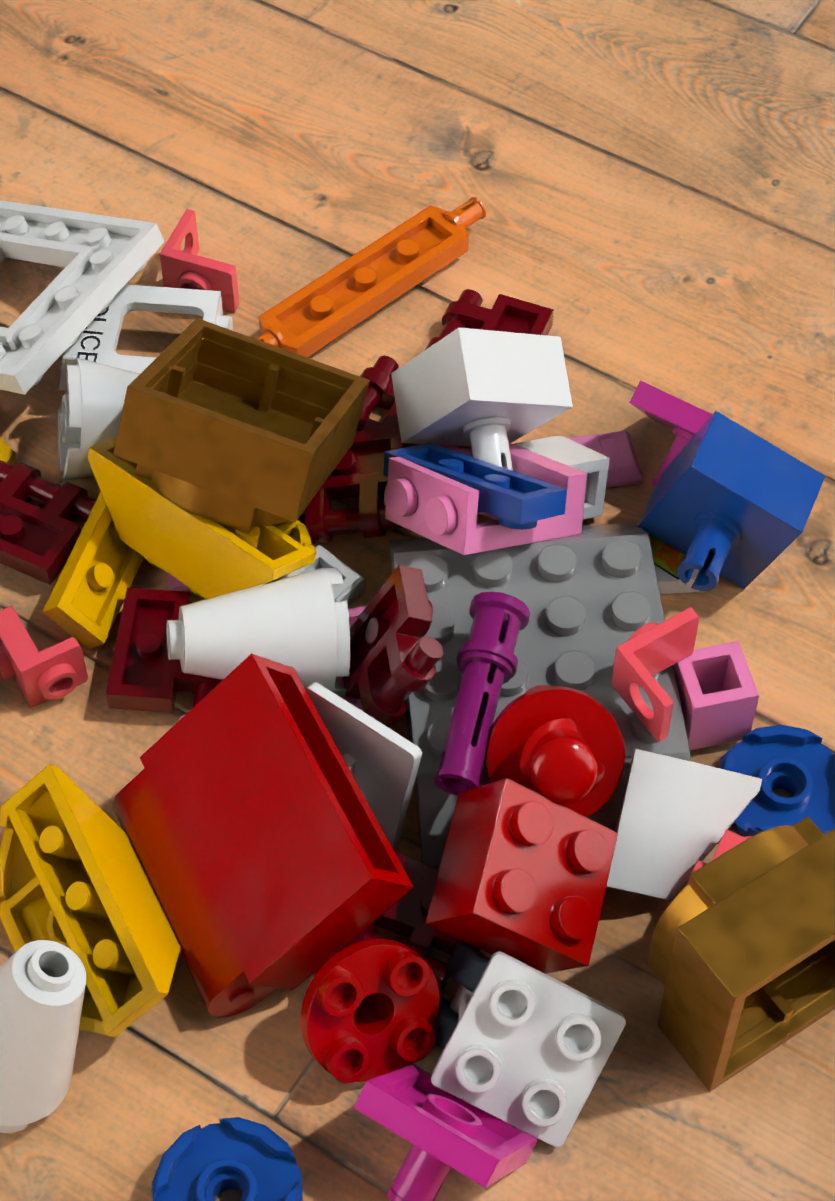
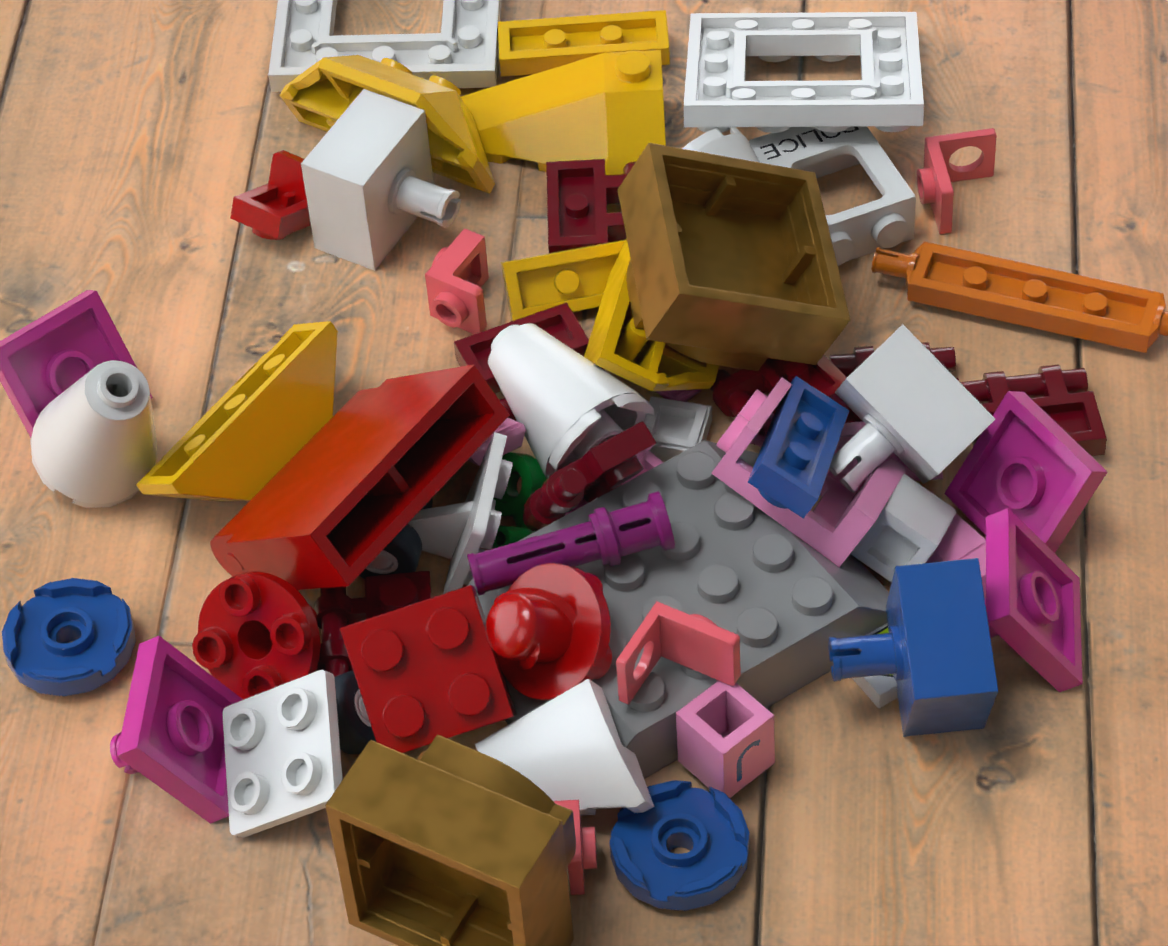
camera: 65 degrees right, 5 degrees down
(600, 368) = (1028, 467): none -> dark pink tile

